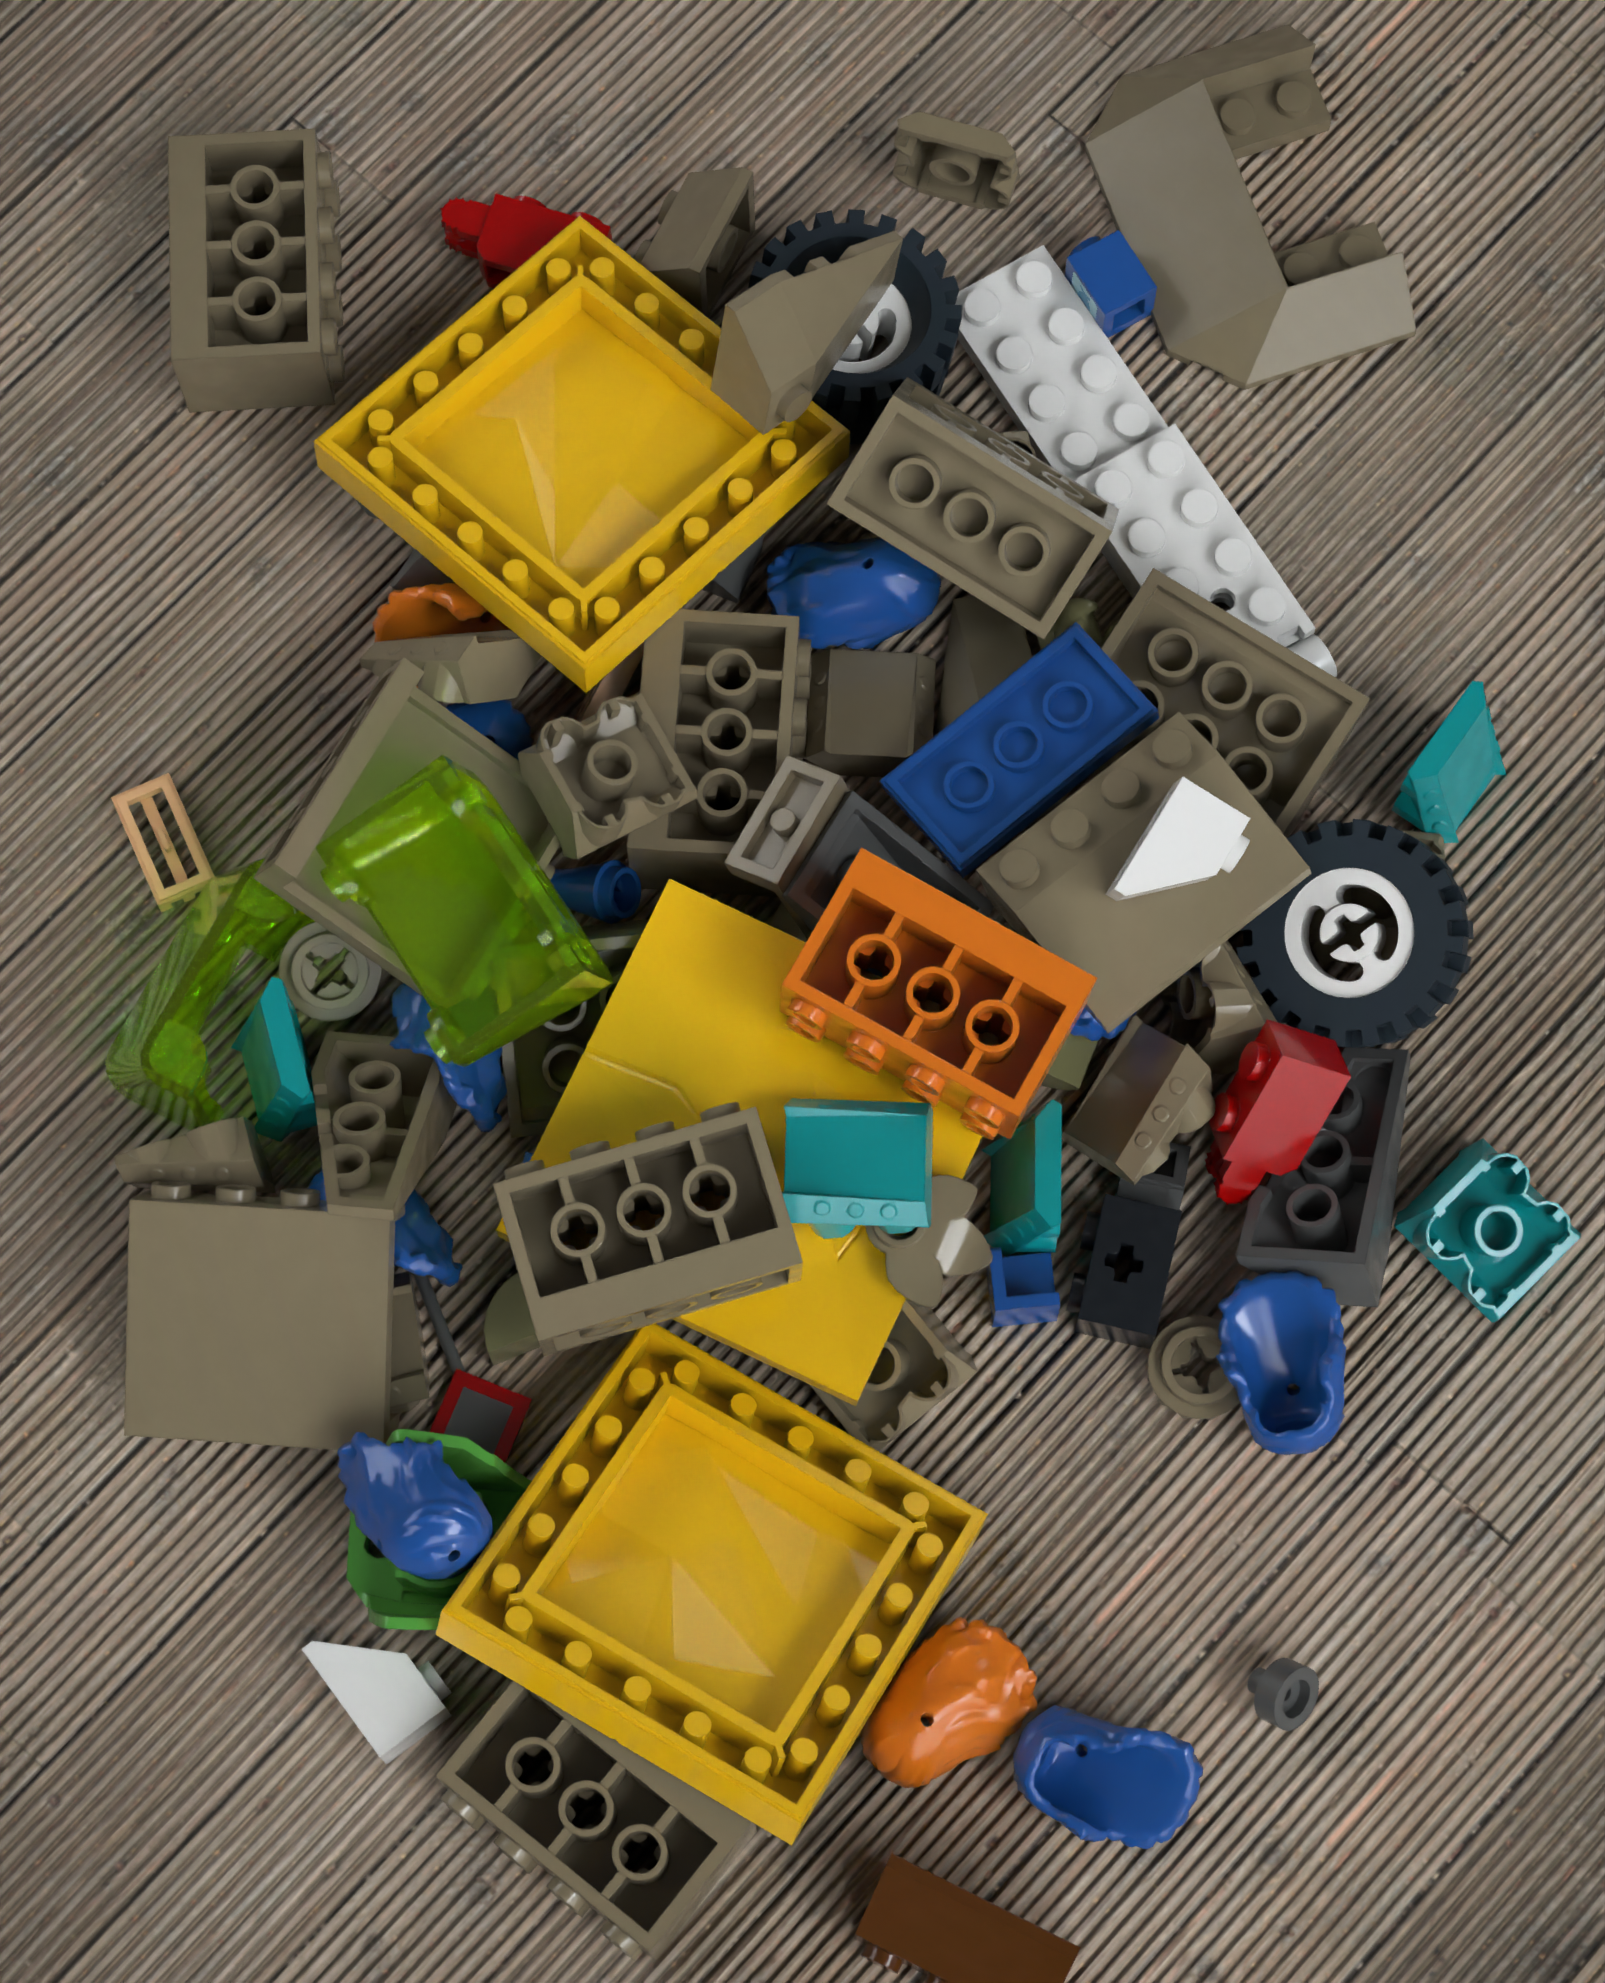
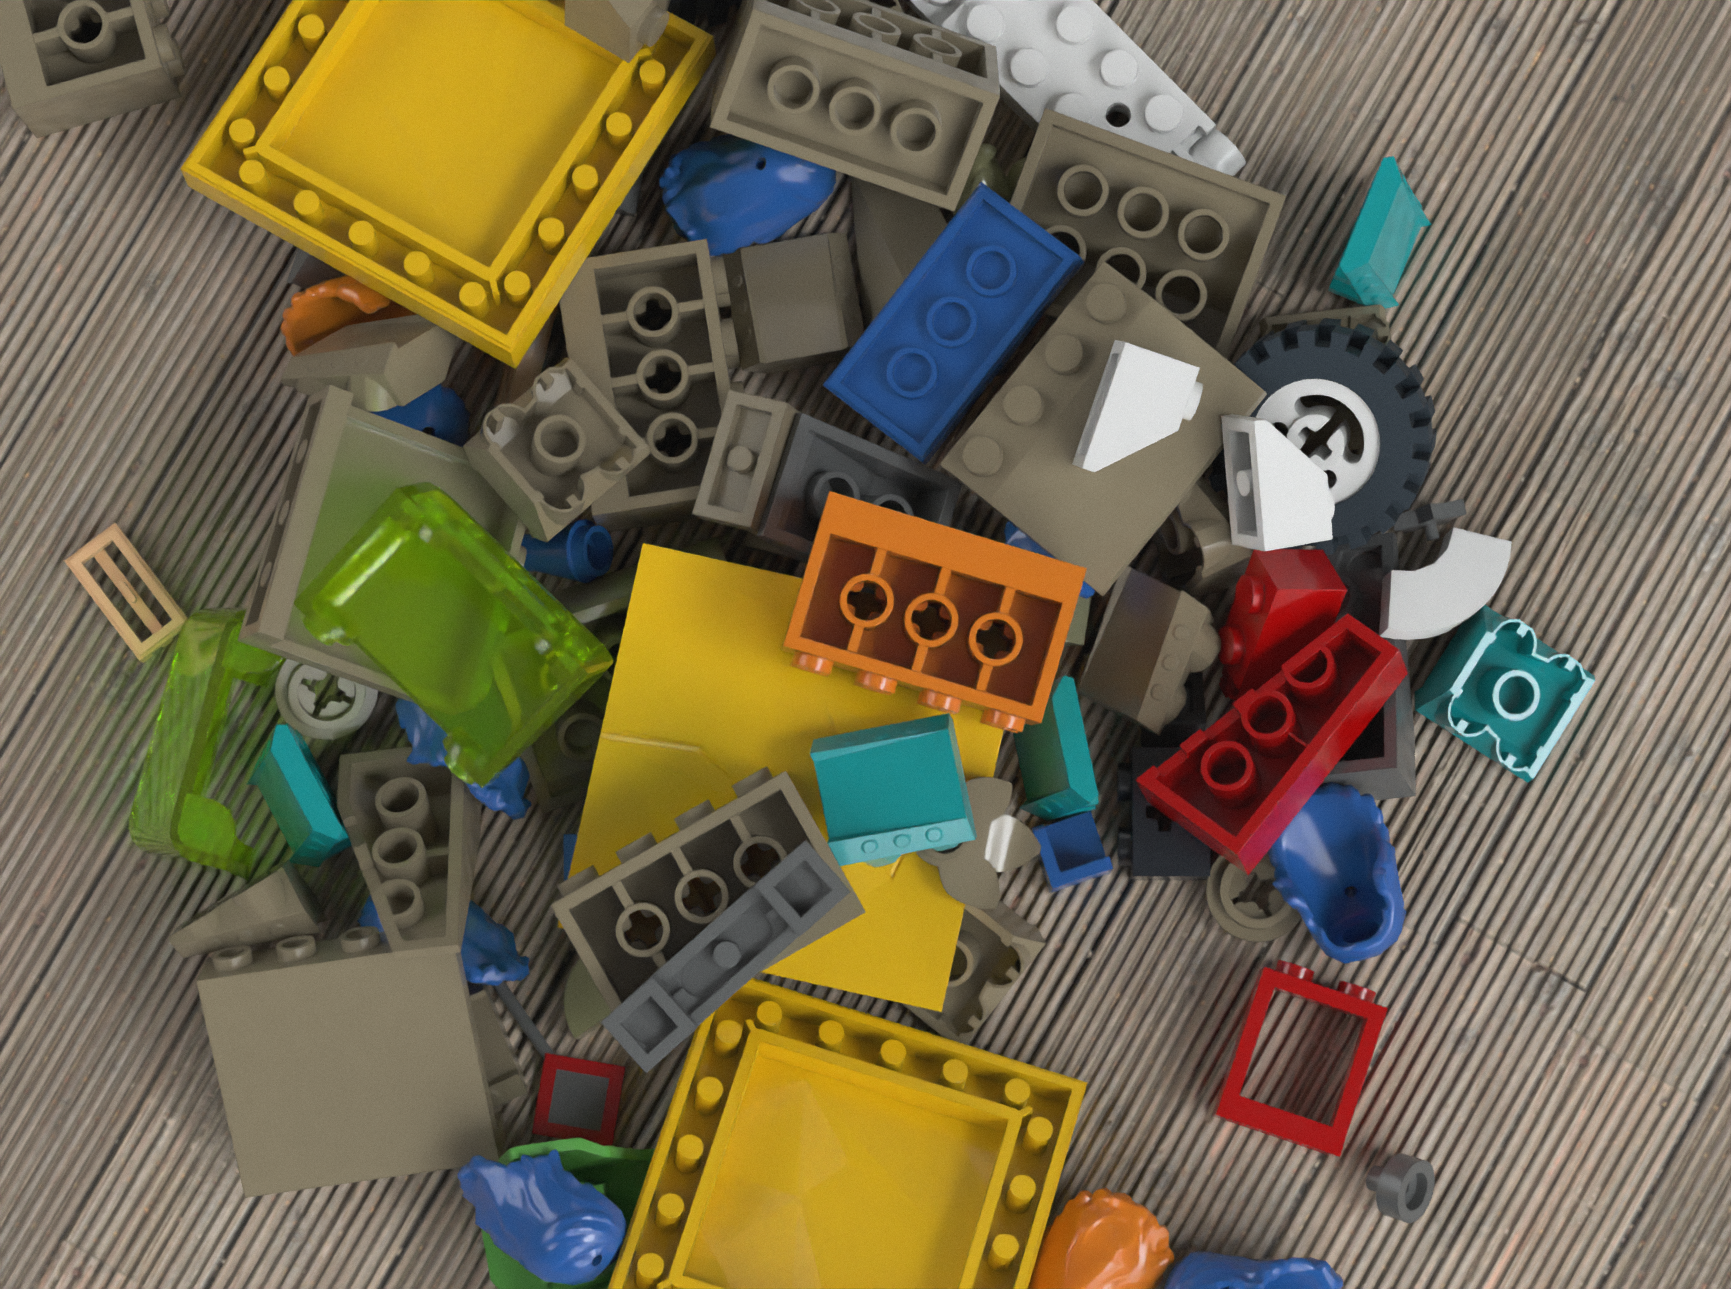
camera: 10 degrees left, 10 degrees up
(654, 1268) = (725, 956): none -> dark grey slope
(1170, 1597) = (1279, 1123): none -> red window
(1250, 1214) = (1277, 745): none -> red wedge
(1299, 958) = (1273, 488): none -> white slope
(1446, 1043) = (1429, 517): none -> dark grey piece
(1447, 1114) = (1445, 592): none -> white tile

